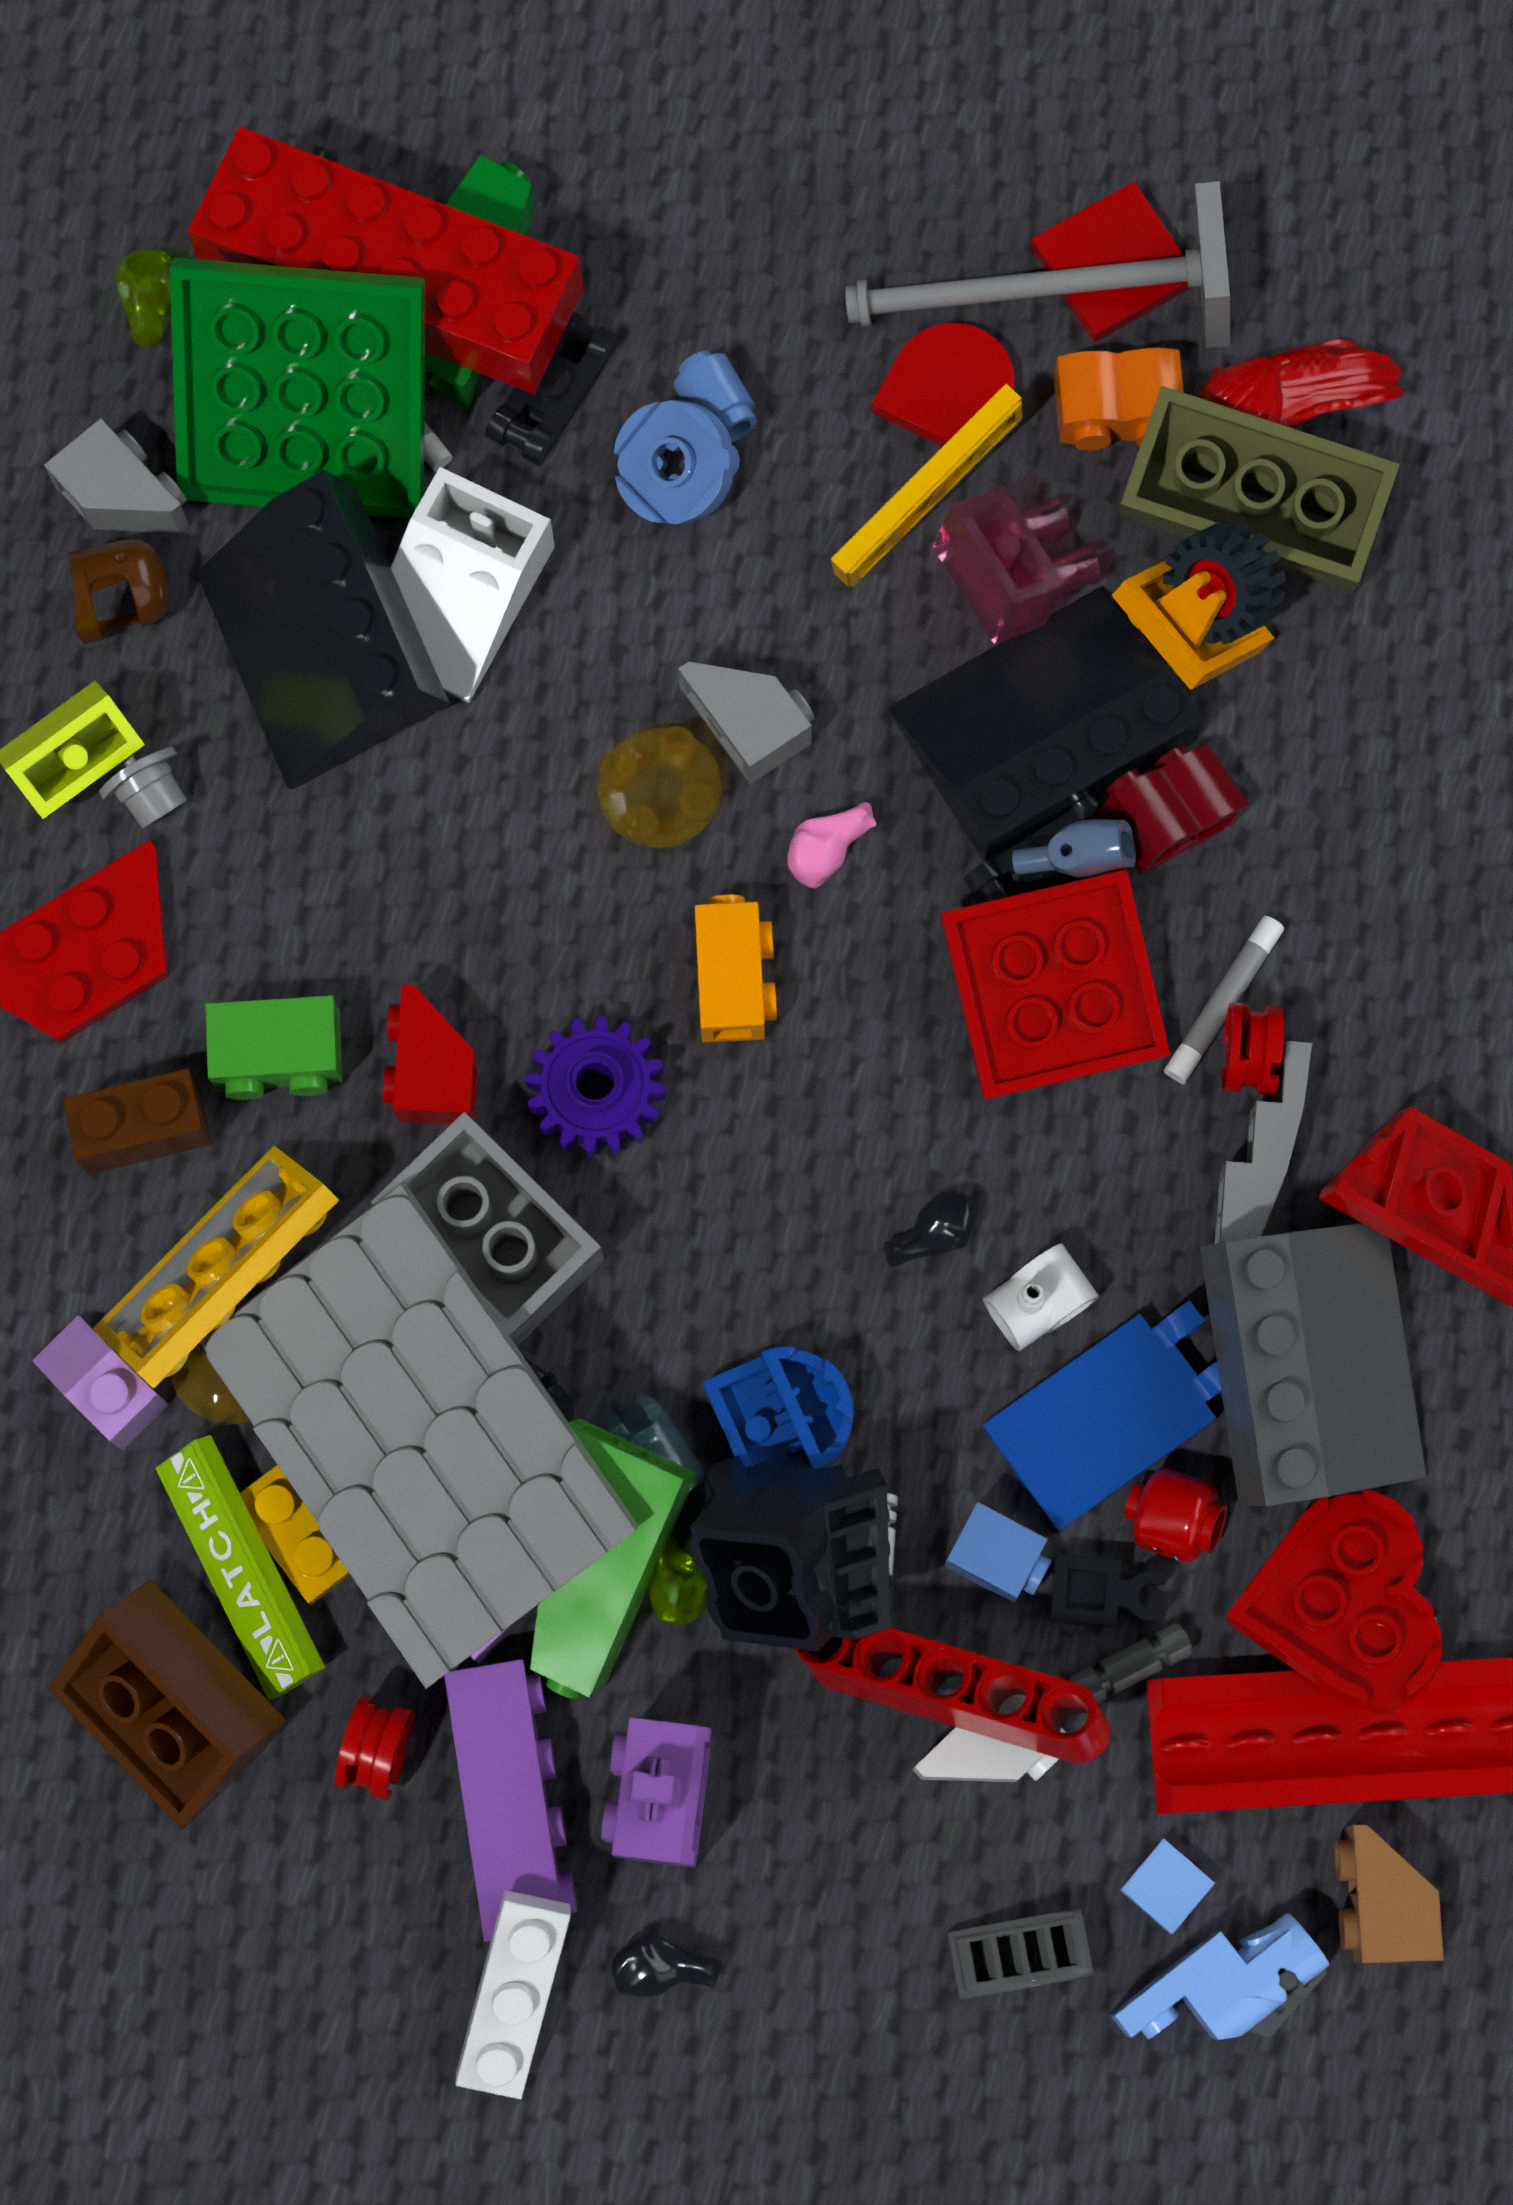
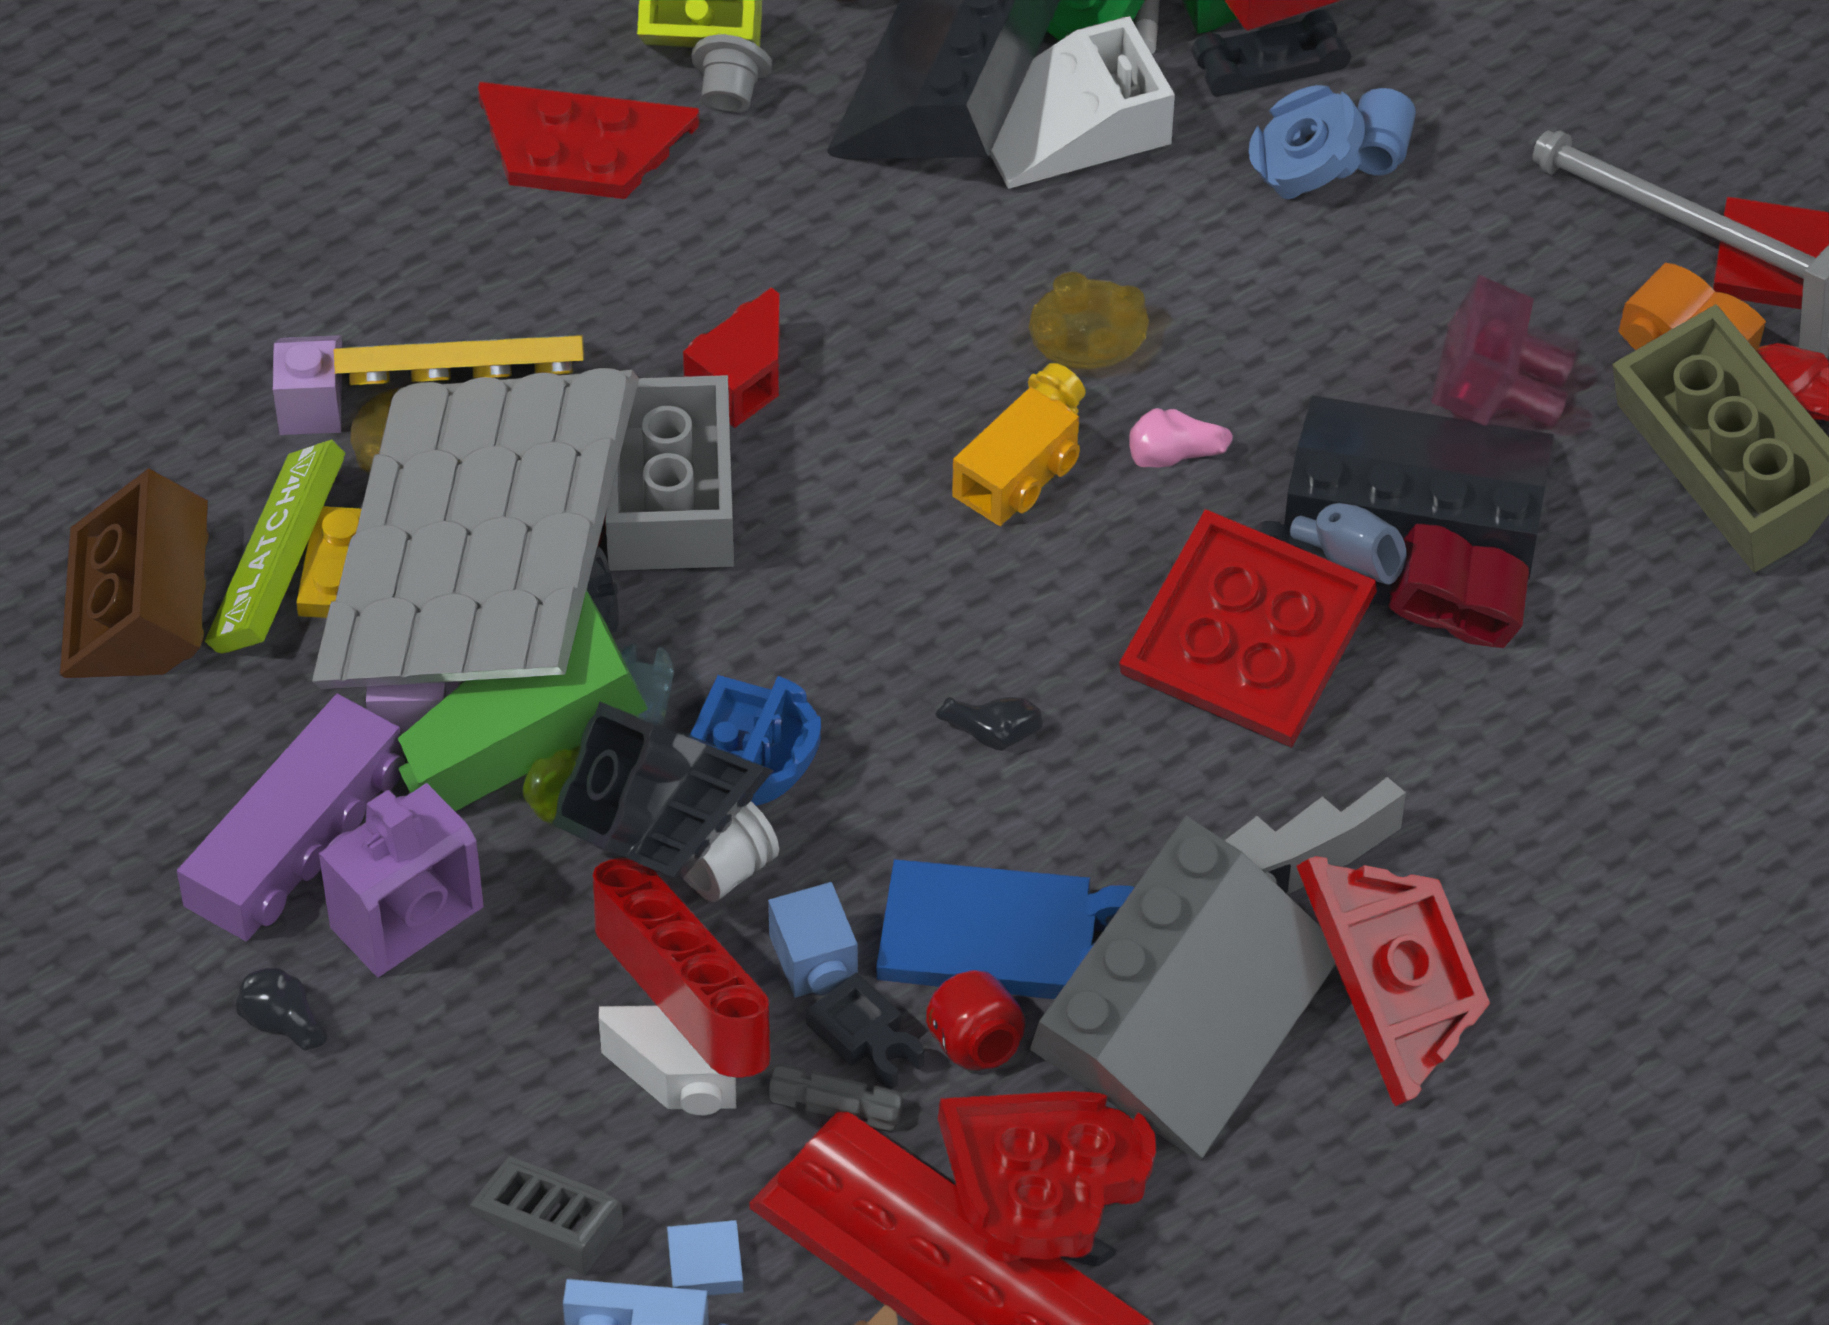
camera: 40 degrees right, 25 degrees down
(137, 1121) = (505, 247): reddish brown brick -> none
(274, 1046) = (648, 273): bright green brick -> none
(374, 1748) = (241, 709): red wheel -> none
(513, 1994) = (158, 923): white plate -> none
(589, 1054) = (843, 455): dark purple gear -> none
(697, 878) = (1059, 384): none -> yellow plate
(749, 715) = (1201, 323): light grey slope -> none
(928, 487) = (1448, 275): yellow tile -> none
(943, 380) = (1567, 245): red tile -> none
(1040, 1297) = (1026, 809): white piece -> none
(1207, 601) = (1618, 474): plate -> none
(1229, 990) = (1375, 744): light grey bar -> none
(1260, 1051) = (1352, 770): red wheel -> none

